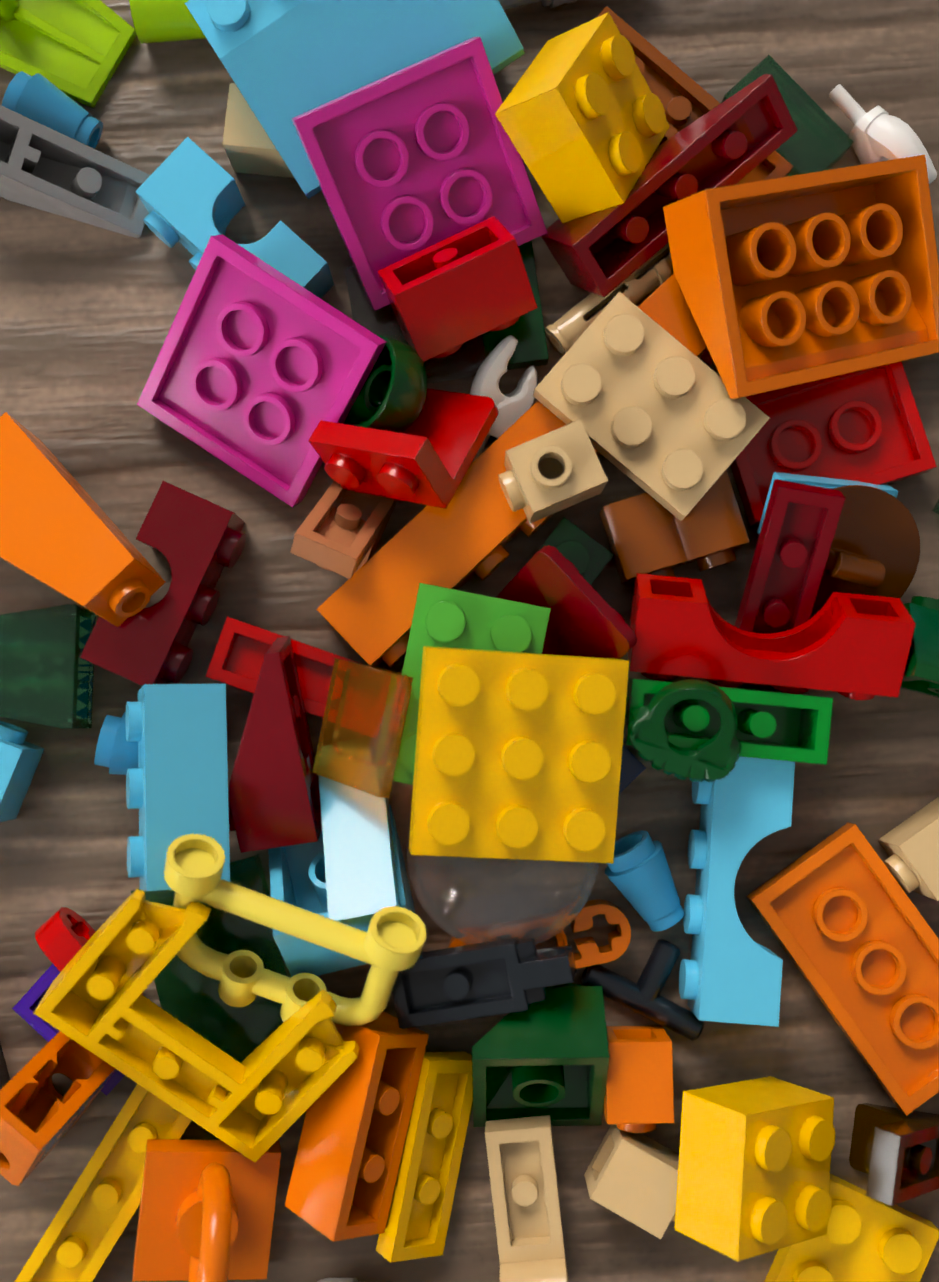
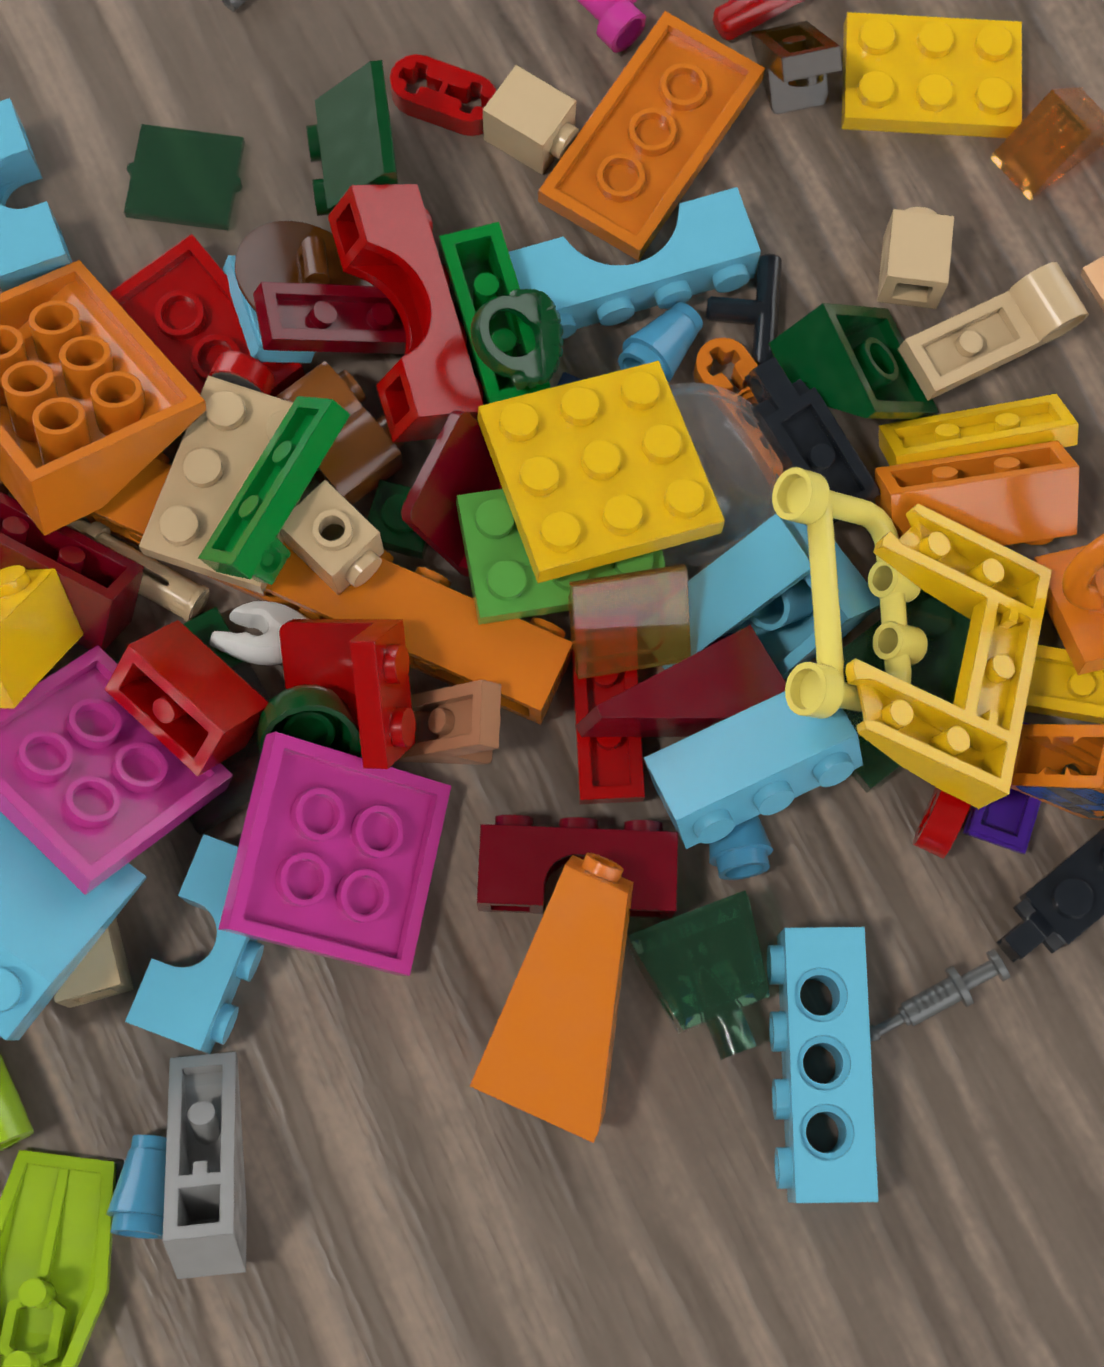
camera: 115 degrees left, 10 degrees down
(579, 386) = (246, 537): none -> green hinge
(639, 1078) = (833, 278): orange brick -> none
(754, 1166) = (858, 164): yellow brick -> none
(759, 454) = (243, 371): none -> red tile

